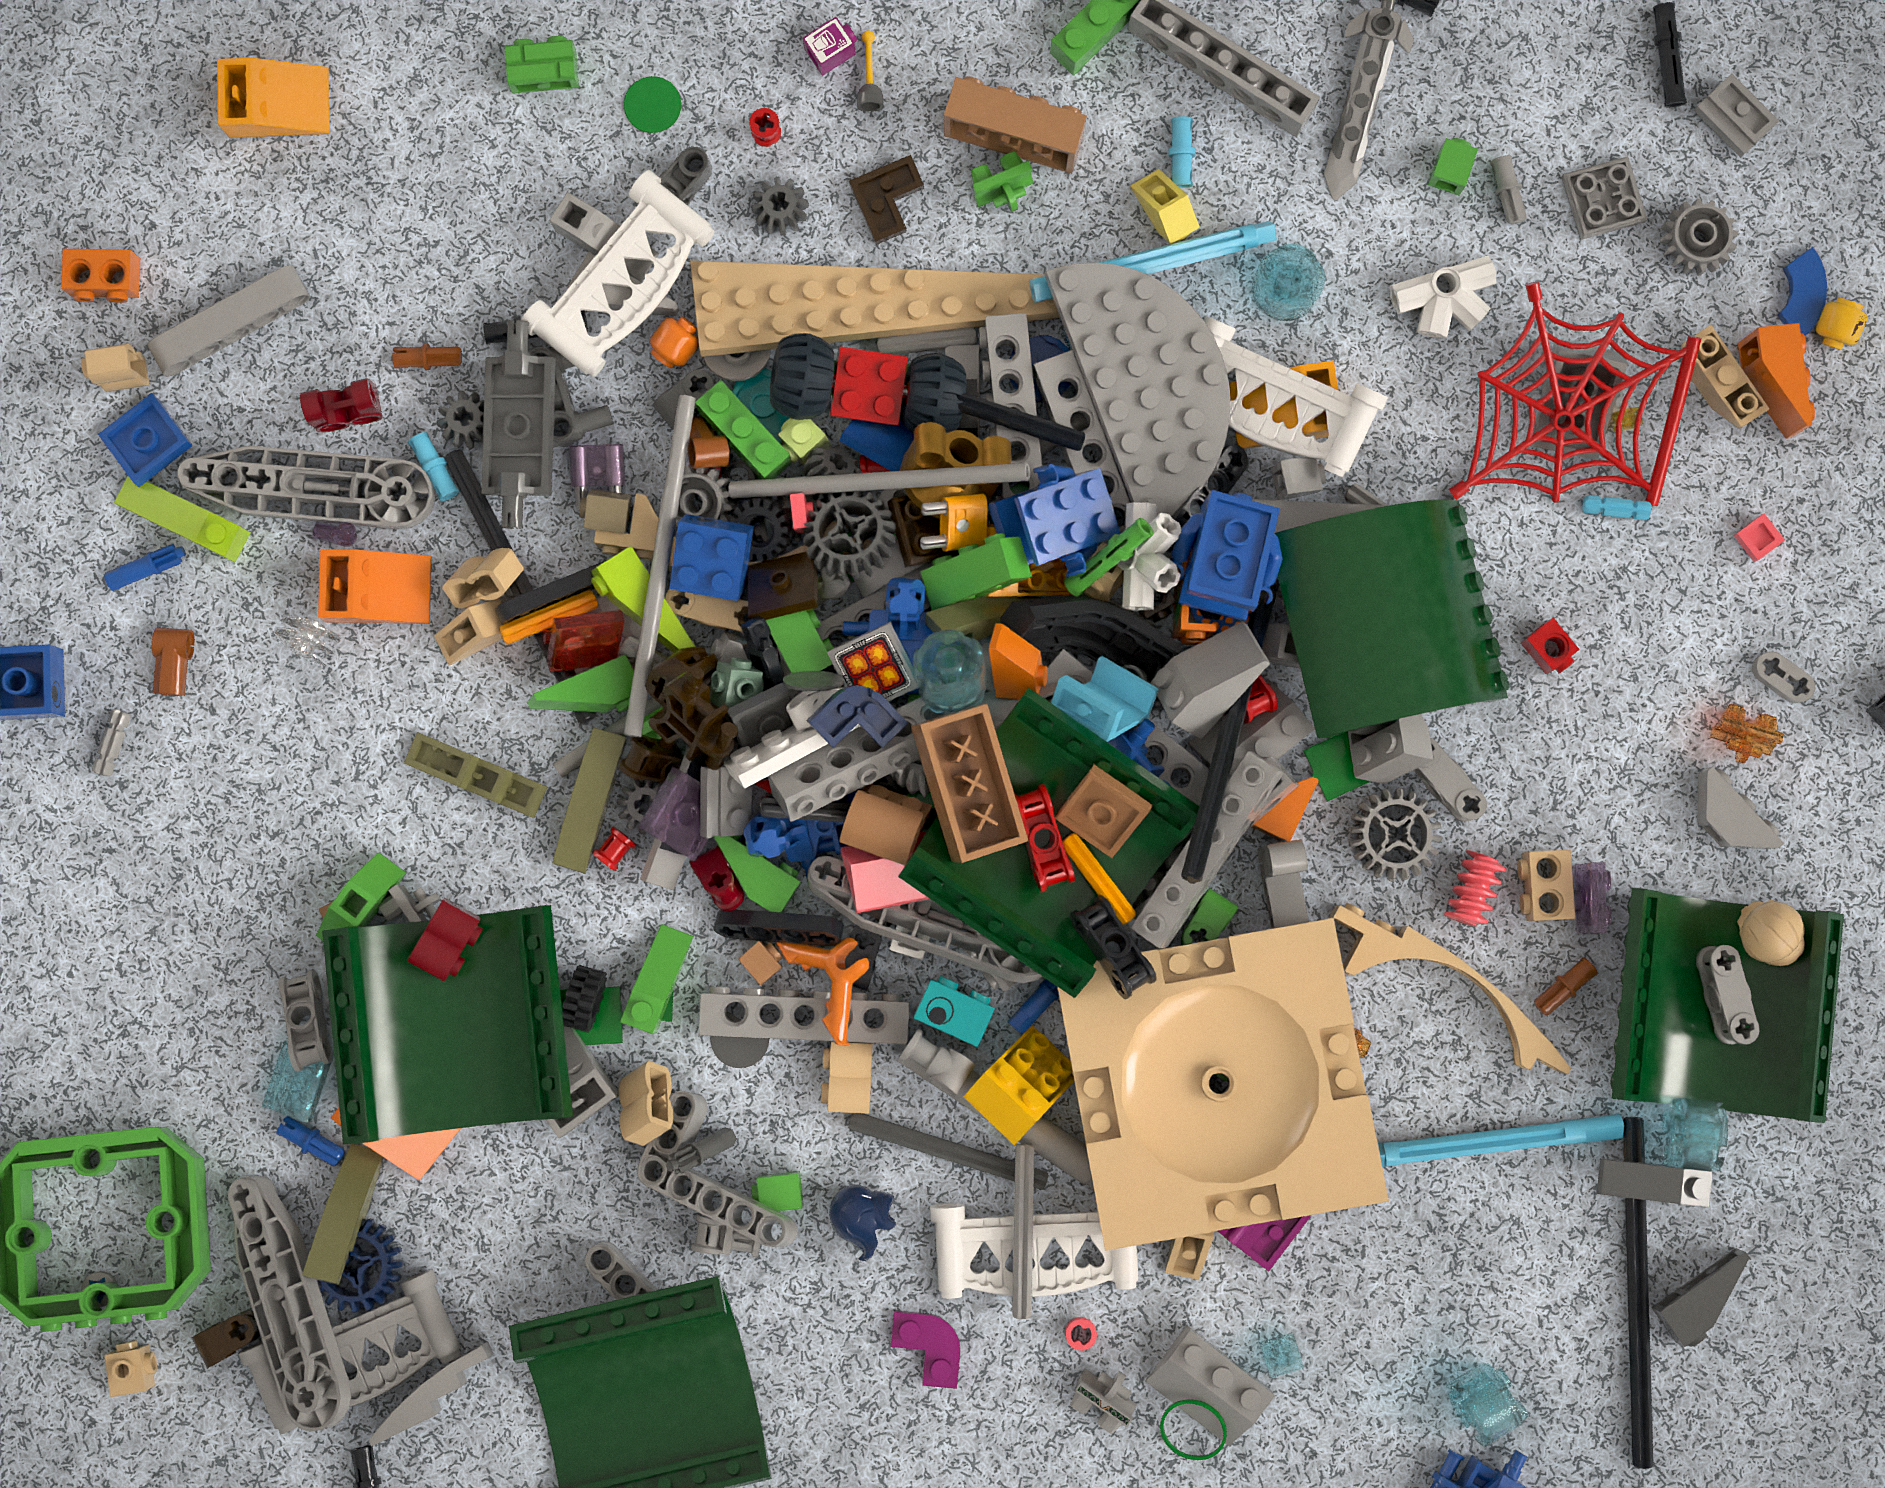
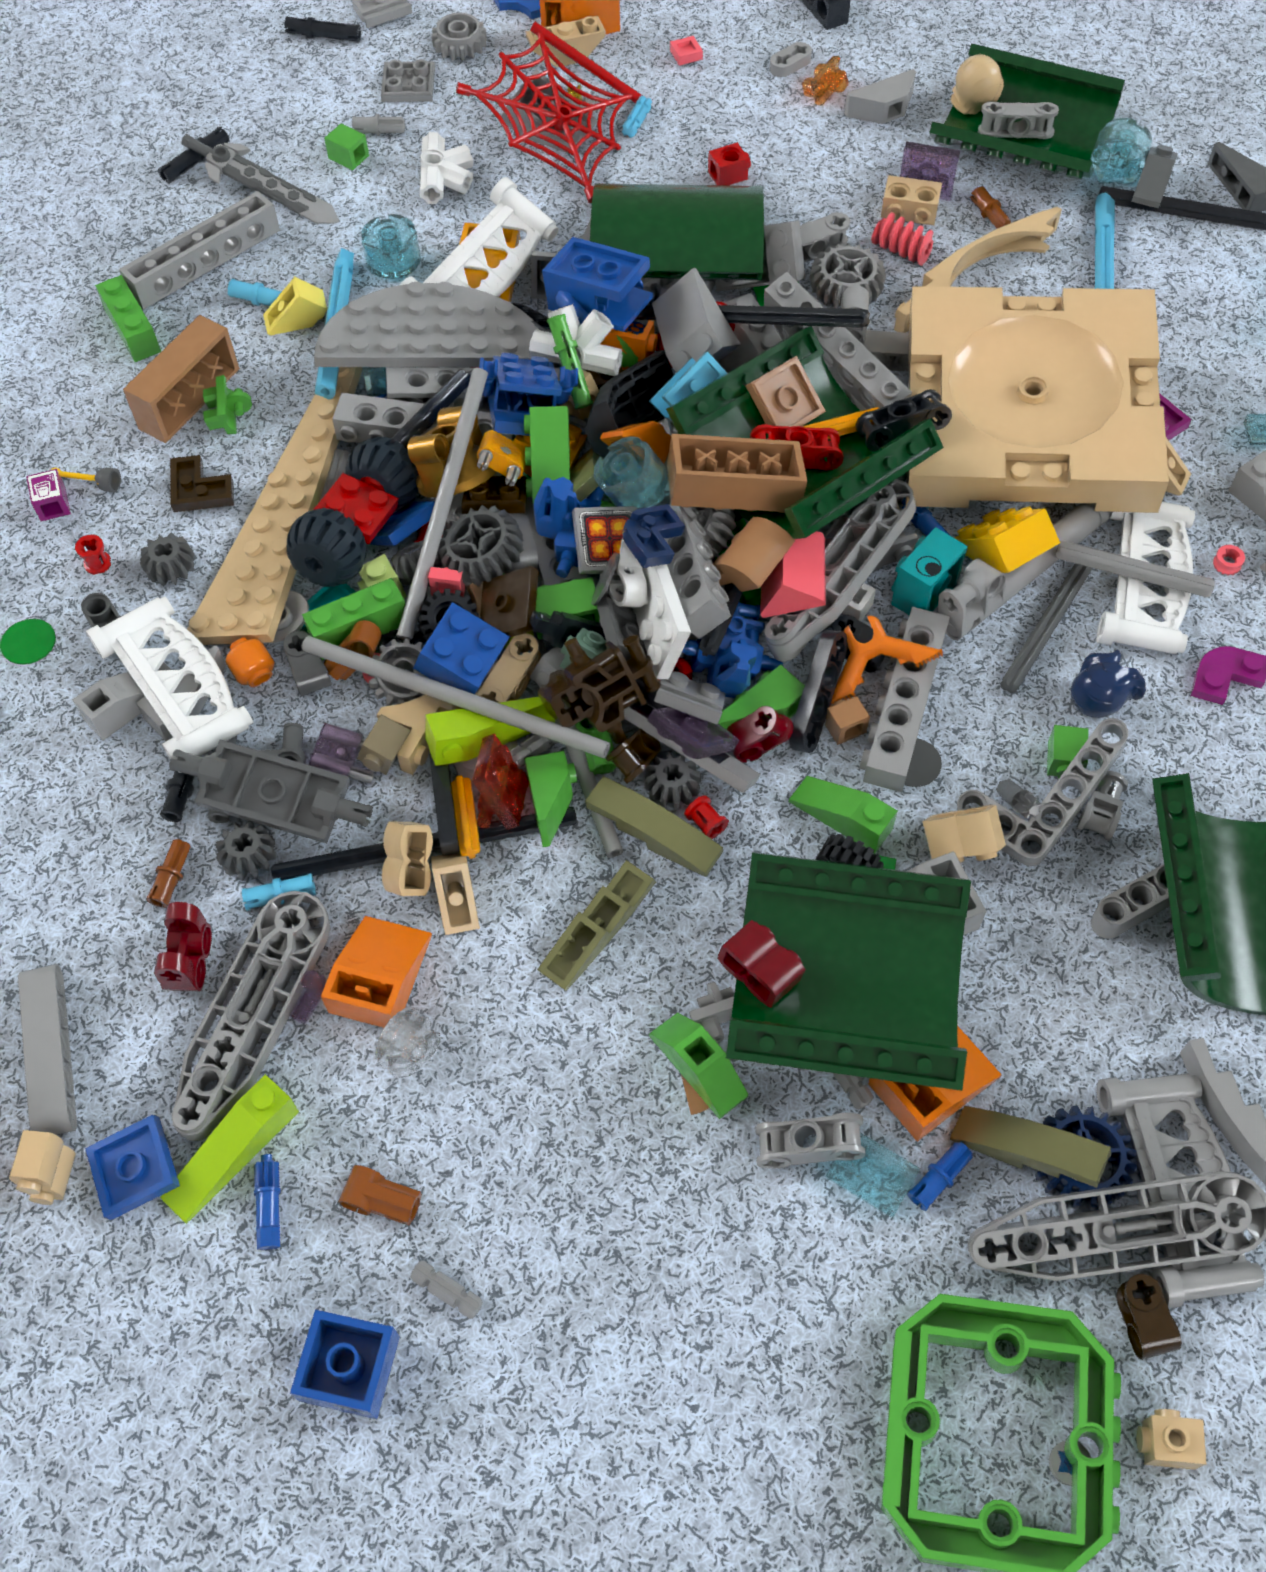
camera: 75 degrees left, 25 degrees down
(848, 1077) = (969, 675): tan brick -> none

